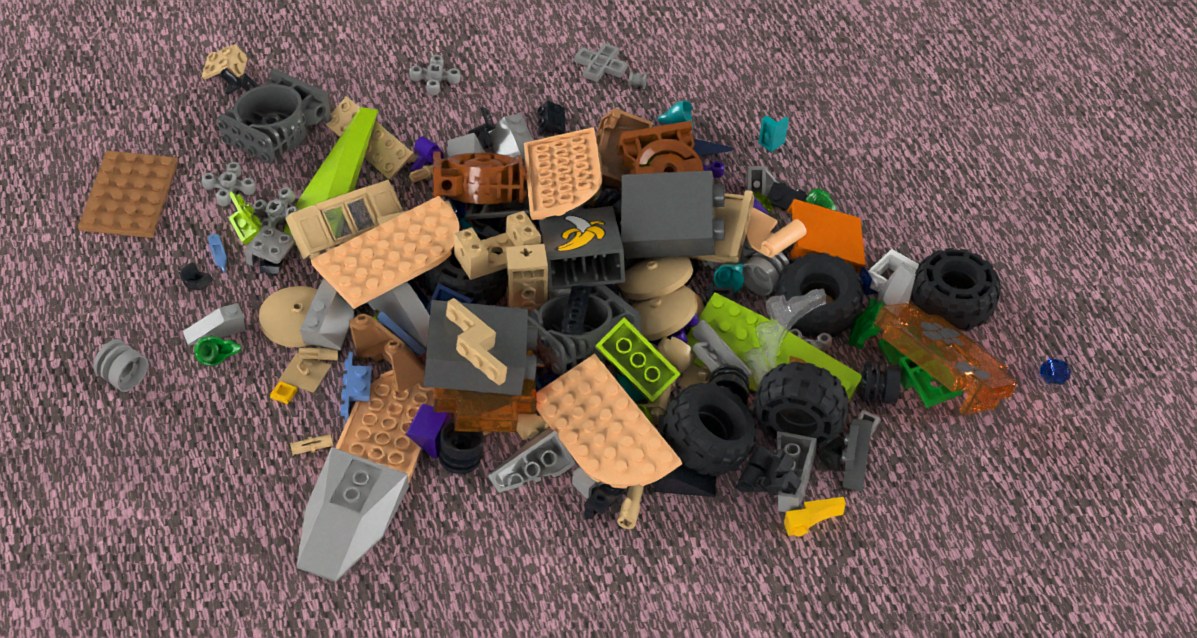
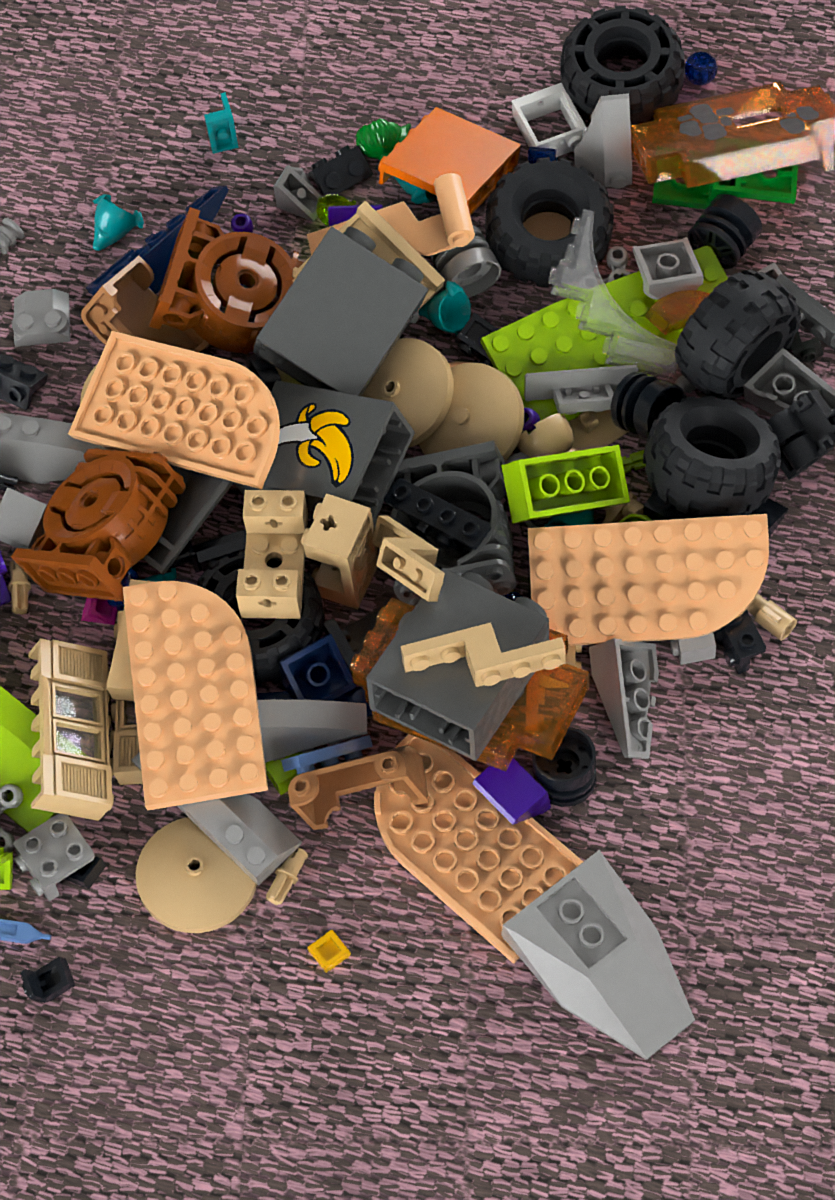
camera: 50 degrees left, 15 degrees up
(120, 365) = (172, 1147): light grey wheel -> none
(213, 350) = (208, 1009): green hair -> none
(219, 323) = (157, 991): light grey slope -> none
(305, 373) = (307, 909): tan piece -> none
(311, 444) = (446, 953): tan pin -> none
(357, 385) = (377, 849): medium blue bracket -> none
(529, 297) = (407, 558): none -> tan bracket
(592, 113) = (41, 317): none -> light grey slope
(825, 353) = (668, 268): none -> light grey slope
(864, 325) = (626, 193): green plate -> none
(991, 331) = (701, 68): none -> clear blue piece
(1055, 371) = (802, 37): clear blue head -> none

